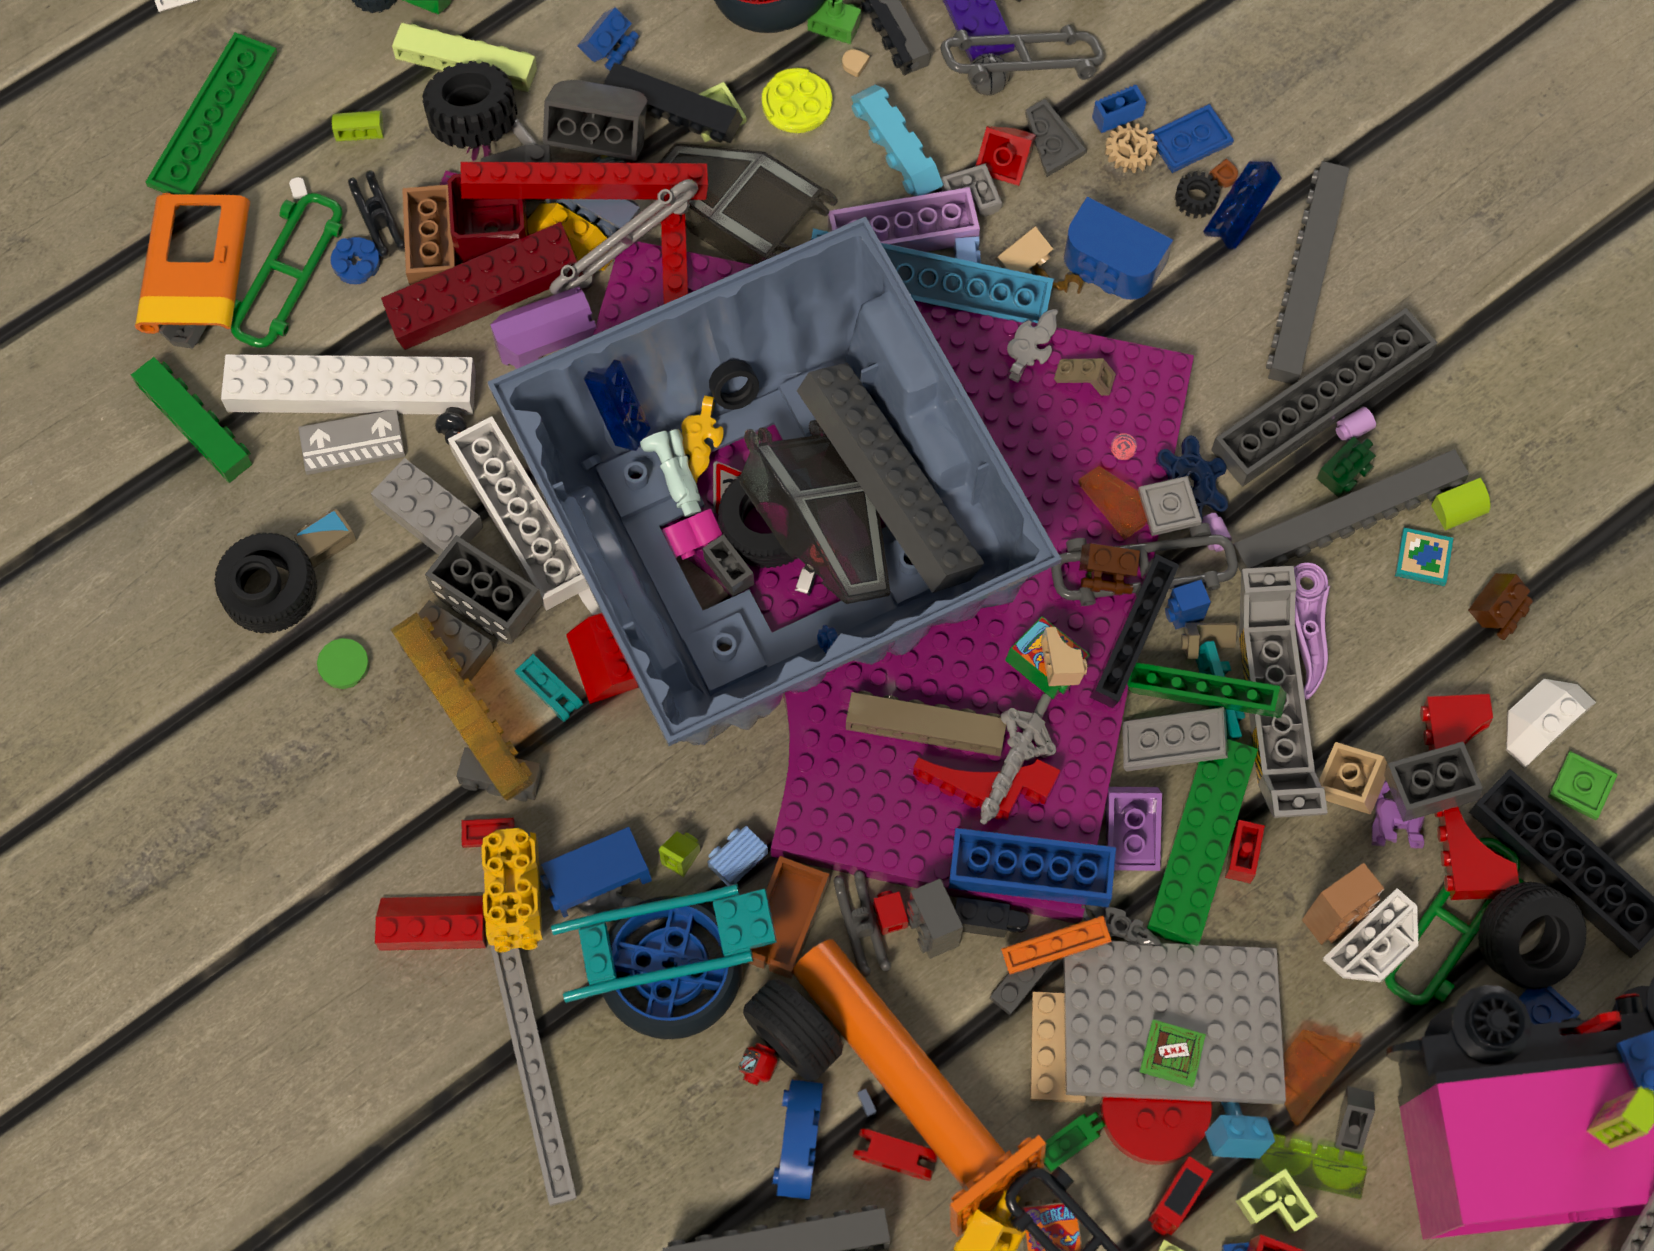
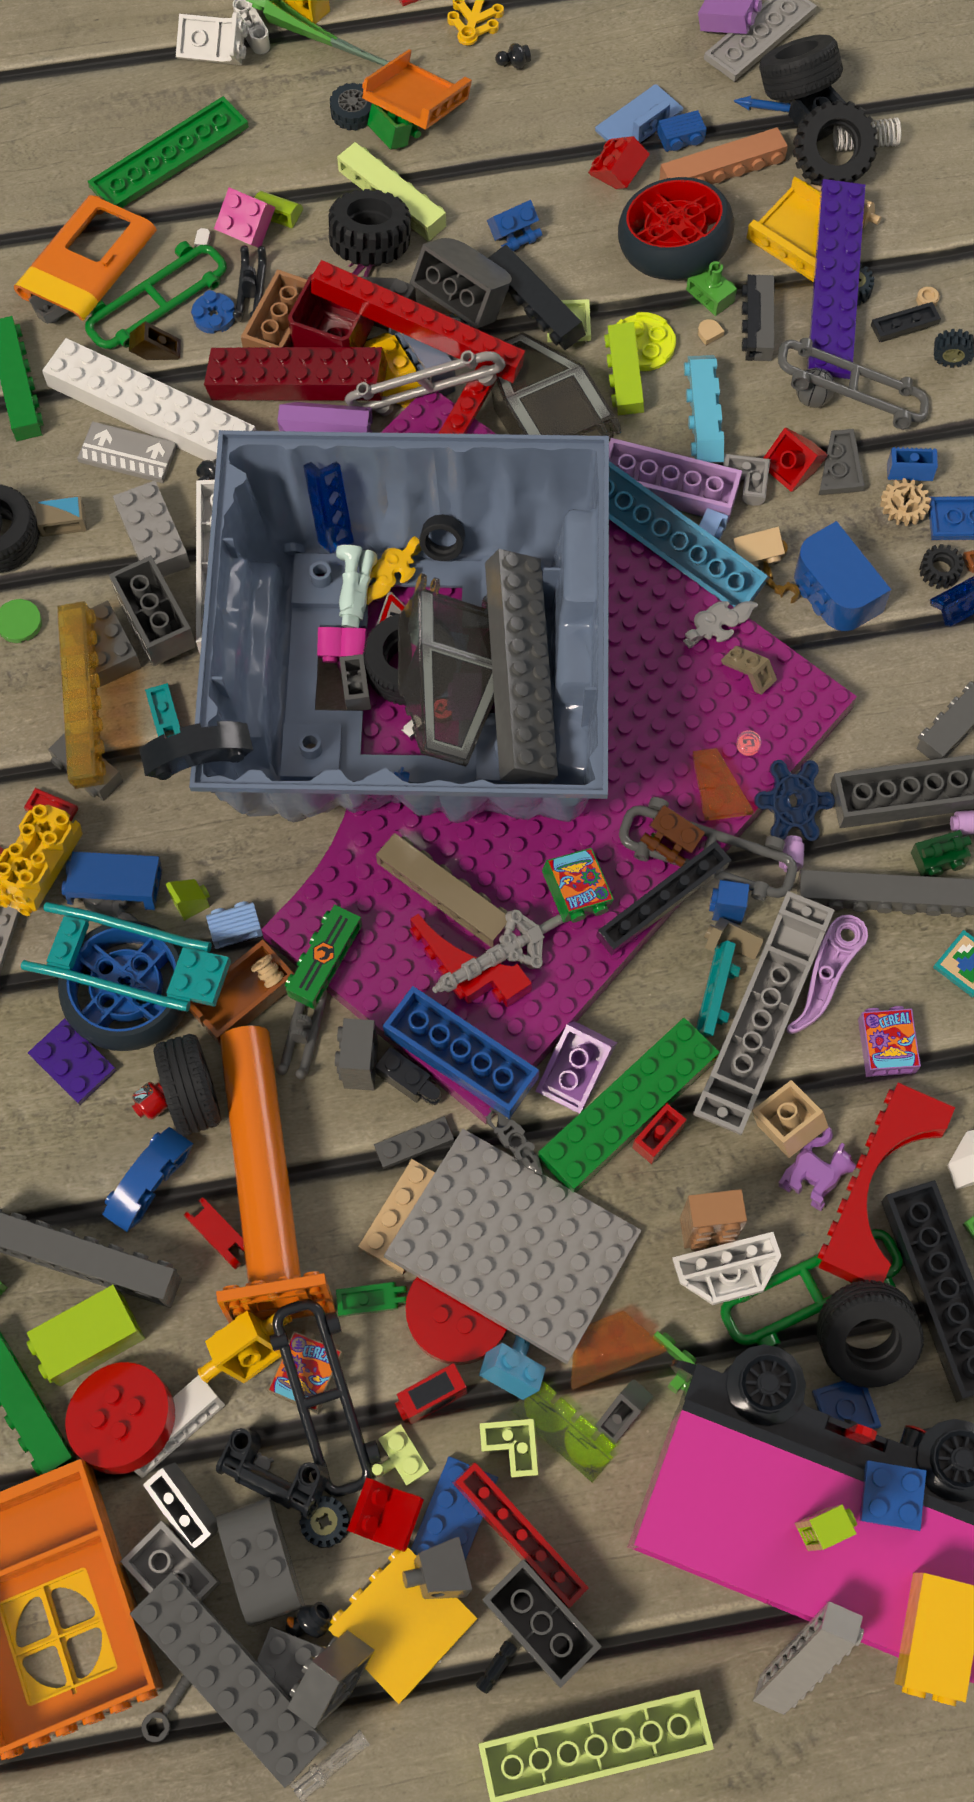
camera: 30 degrees right, 0 degrees up
(315, 319) = (153, 343): none -> dark brown slope
(335, 149) = (244, 217): none -> brick
(522, 134) = (402, 269): light grey piece -> none
(653, 701) = (195, 746): none -> black brick
(656, 1067) = (72, 1061): none -> dark purple plate
(799, 136) = (625, 367): none -> lime brick
(802, 884) = (267, 971): none -> tan bush
(850, 843) = (323, 957): none -> green brick
(866, 1102) = (221, 1178): sand blue piece -> none
(890, 912) = (327, 1032): red brick -> none
(1056, 945) = (450, 1129): orange tile -> none
(1061, 662) = (582, 893): tan arch -> none
(1169, 505) = (757, 809): light grey tile -> none
(1172, 1053) = (492, 1269): bright green tile -> none
(1174, 739) = (653, 1009): light grey tile -> none
(1207, 690) = (701, 979): green brick -> none
(1387, 1067) = (666, 1340): none -> bright green bracket
(1396, 663) = (889, 1041): none -> brick
(1433, 781) = (855, 1155): dark grey brick -> none

